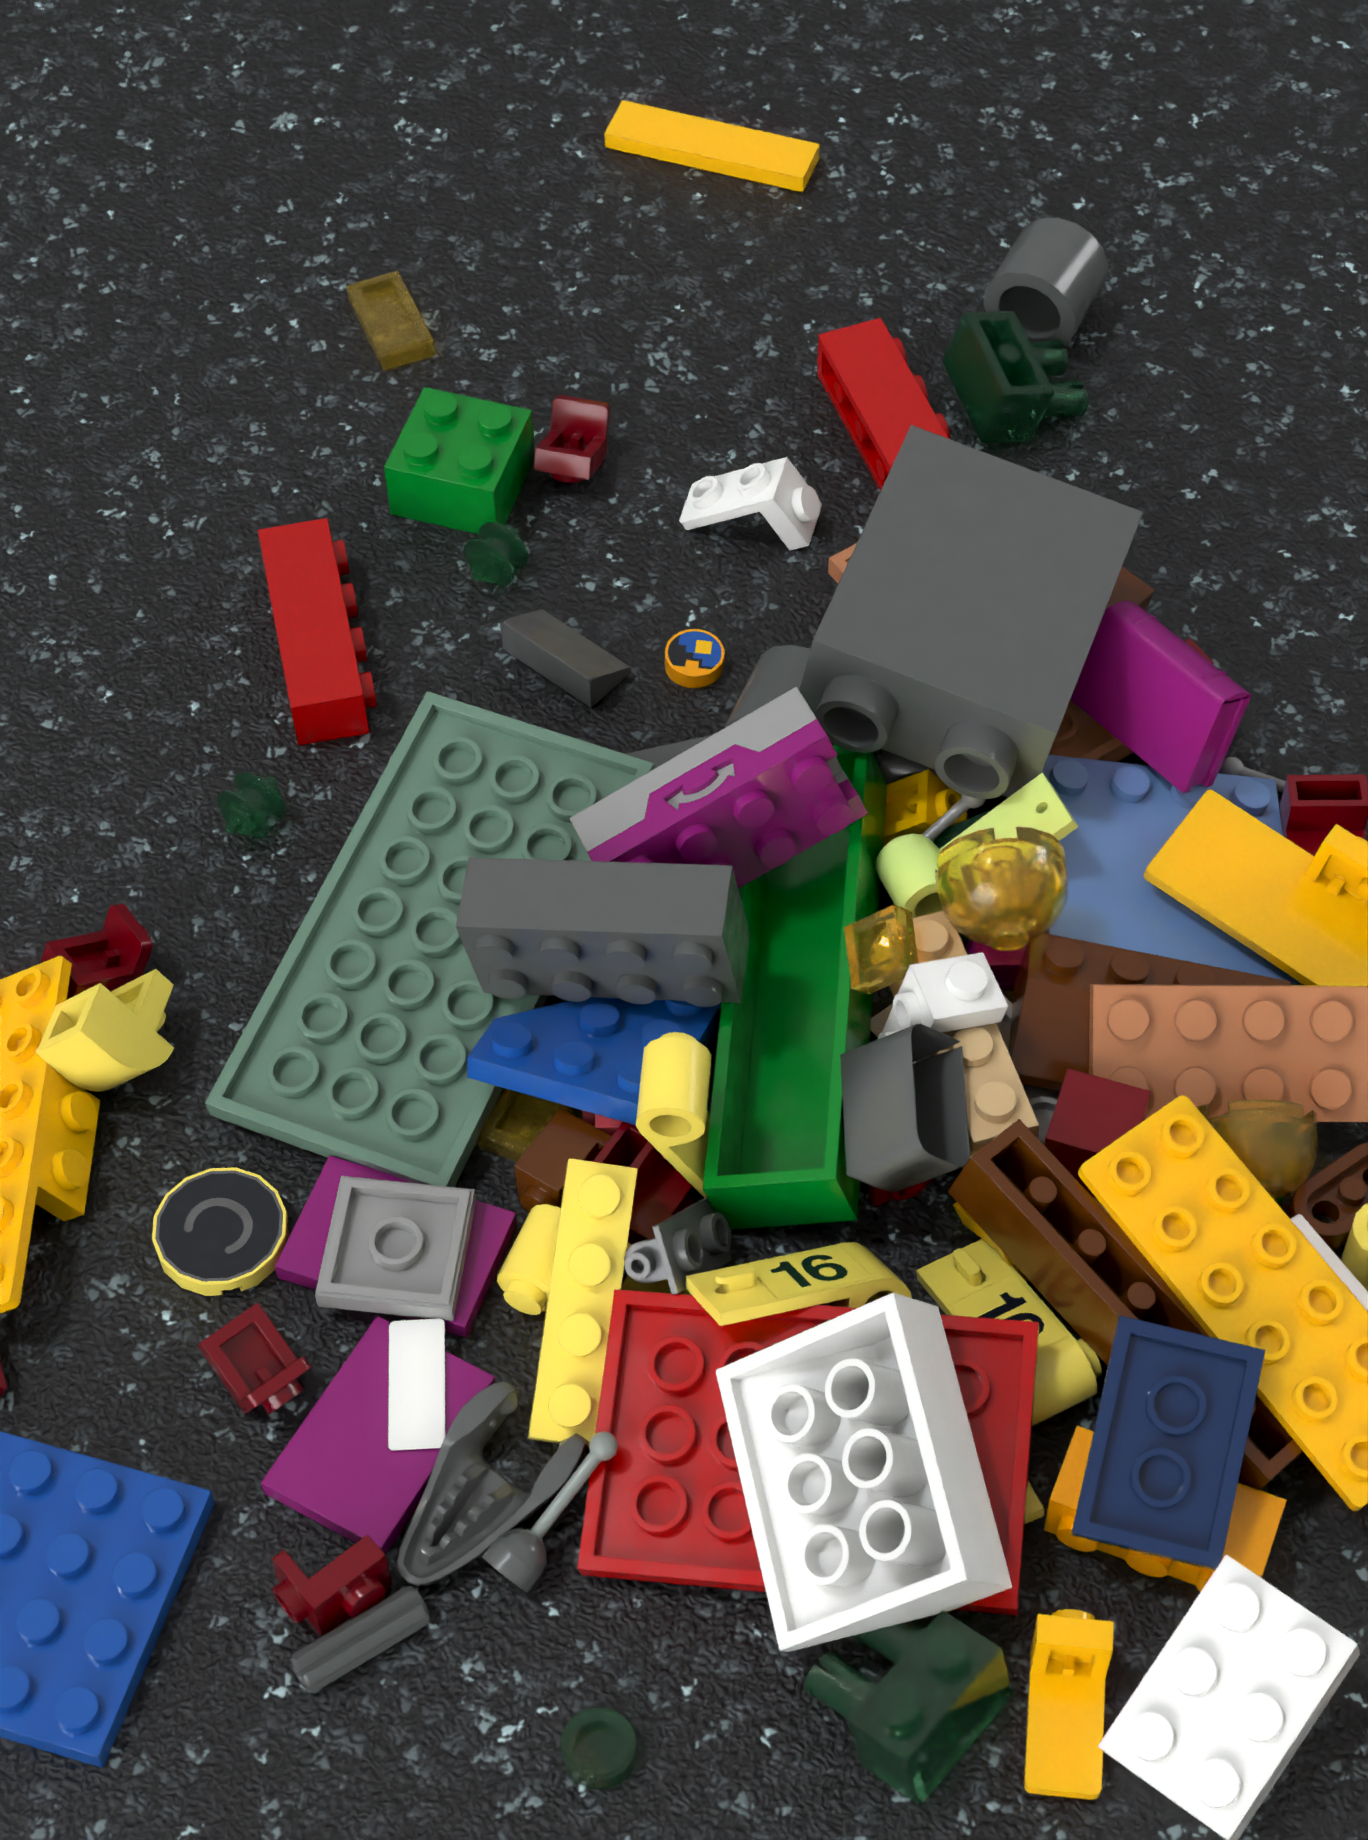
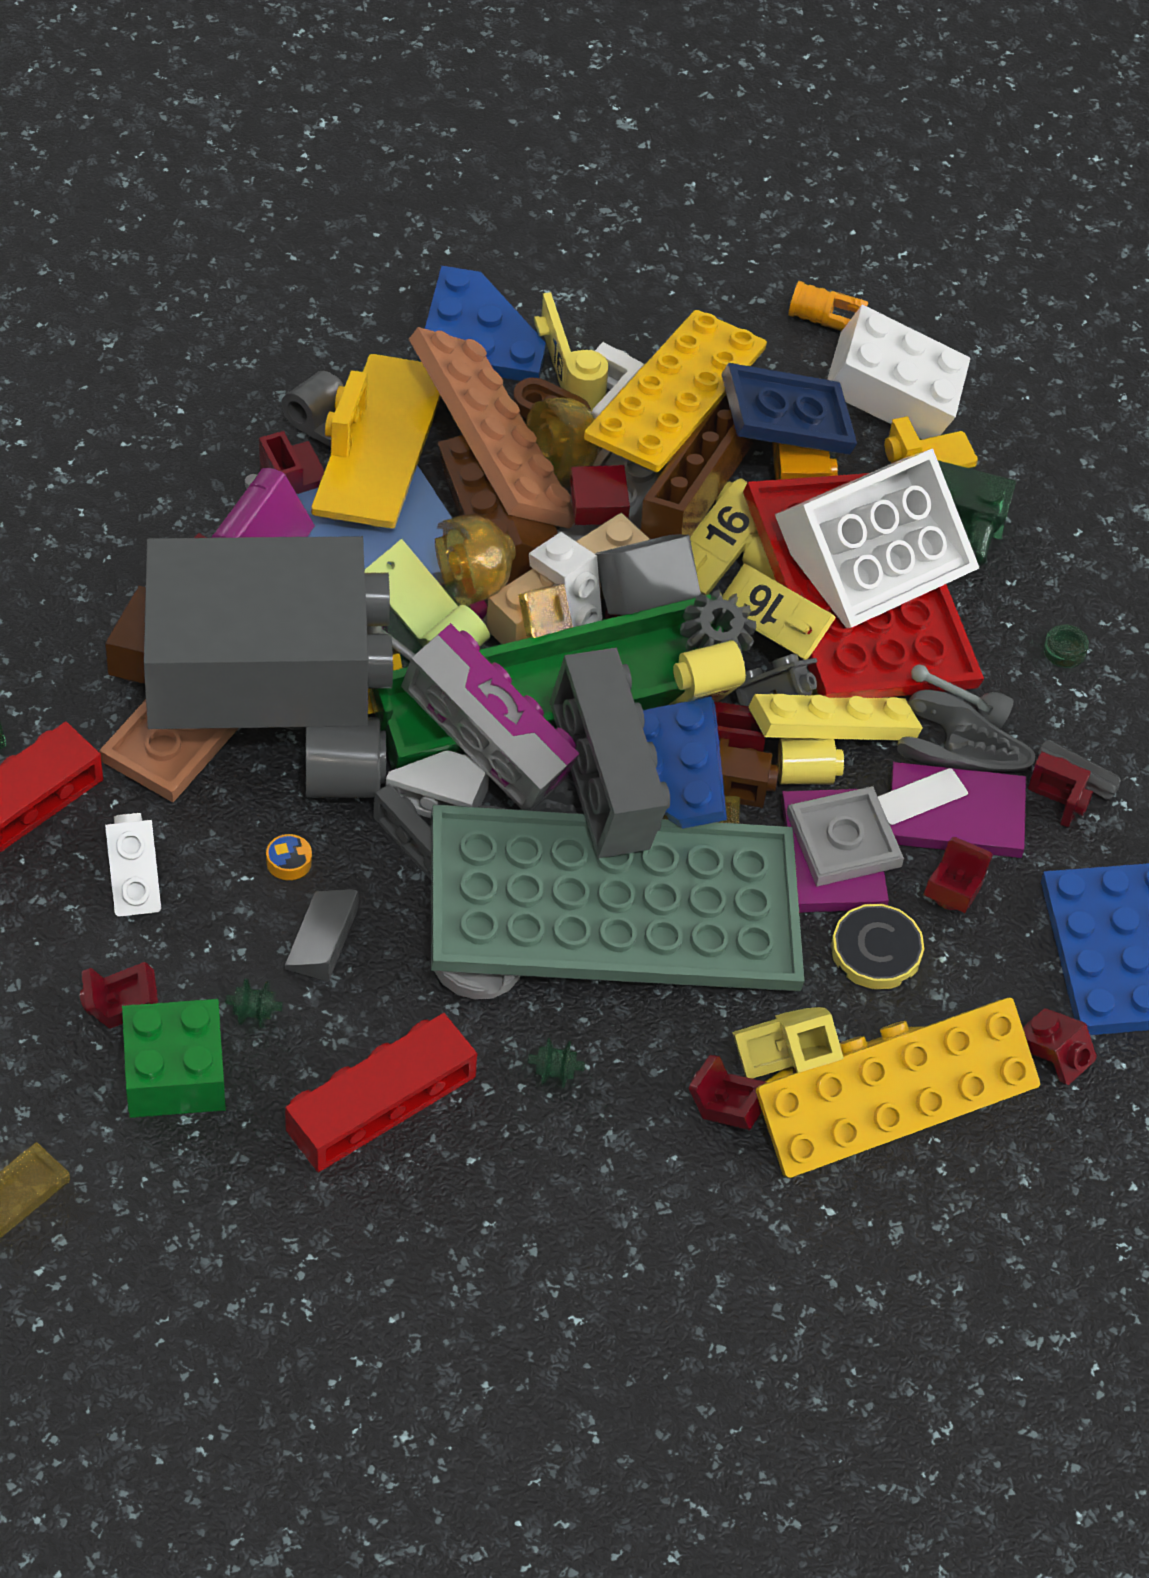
camera: 120 degrees left, 0 degrees up
(760, 1150) = (718, 613): none -> dark grey gear

